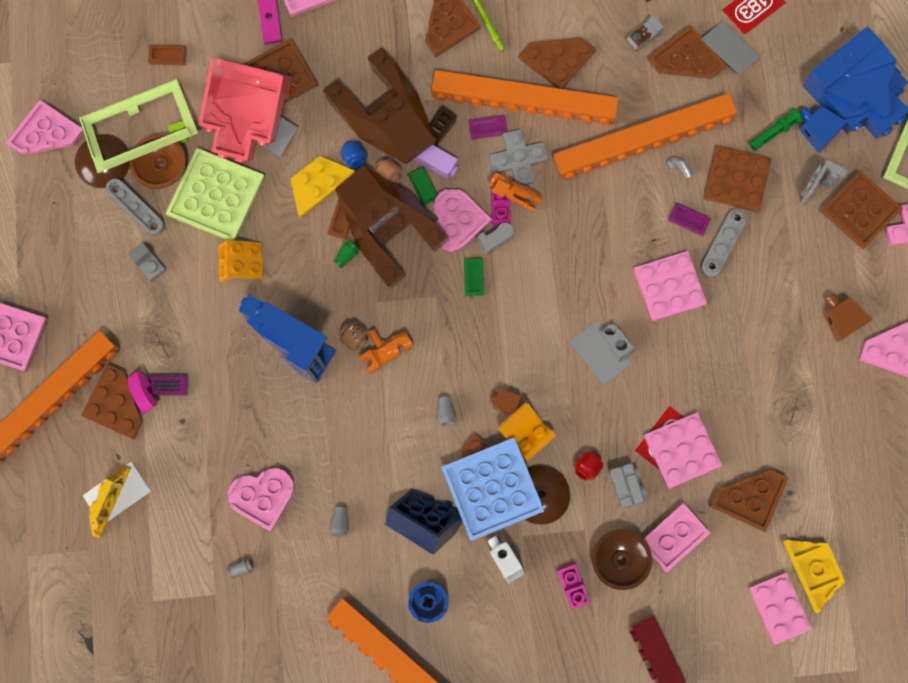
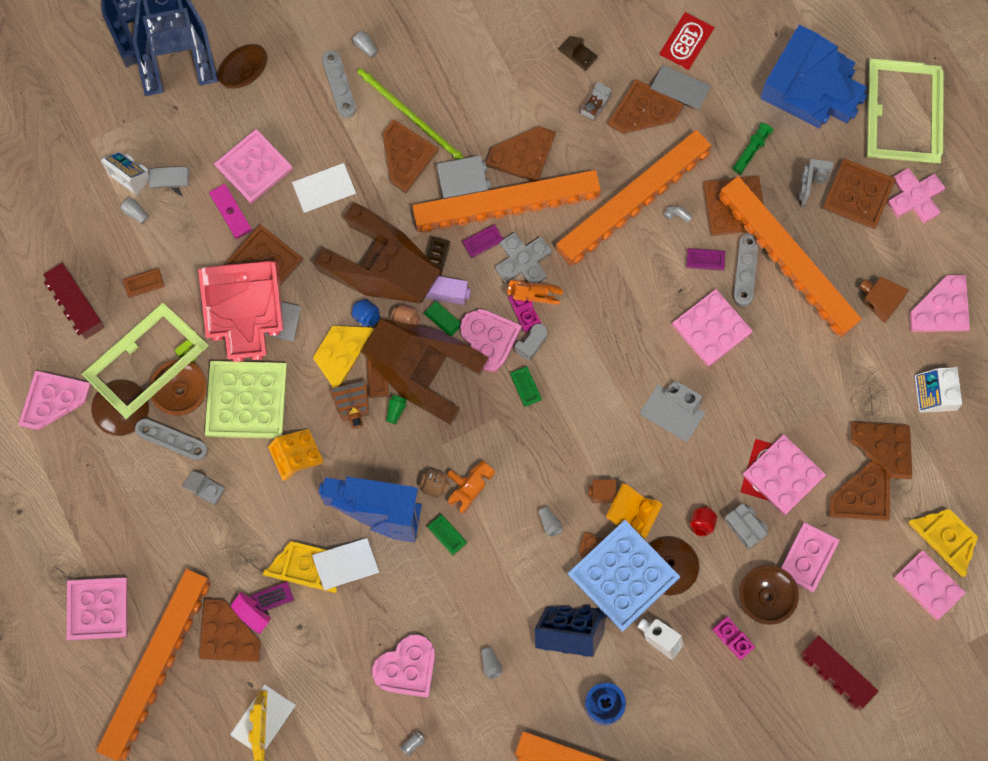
camera: 25 degrees left, 5 degrees down
(98, 49) = (73, 300): none -> dark red brick
(207, 368) = (297, 566): none -> yellow wing
(244, 379) = (345, 564): none -> white sticker
(309, 233) = (352, 402): none -> torso
(347, 387) = (447, 535): none -> green tile
(363, 25) = (323, 187): none -> white sticker
(492, 60) = (463, 177): none -> light grey brick
(770, 246) = (789, 256): none -> orange brick
(790, 460) = (885, 445): none -> dark orange plate
(820, 126) = (792, 130): blue torso -> none
(863, 426) = (938, 390): none -> slope

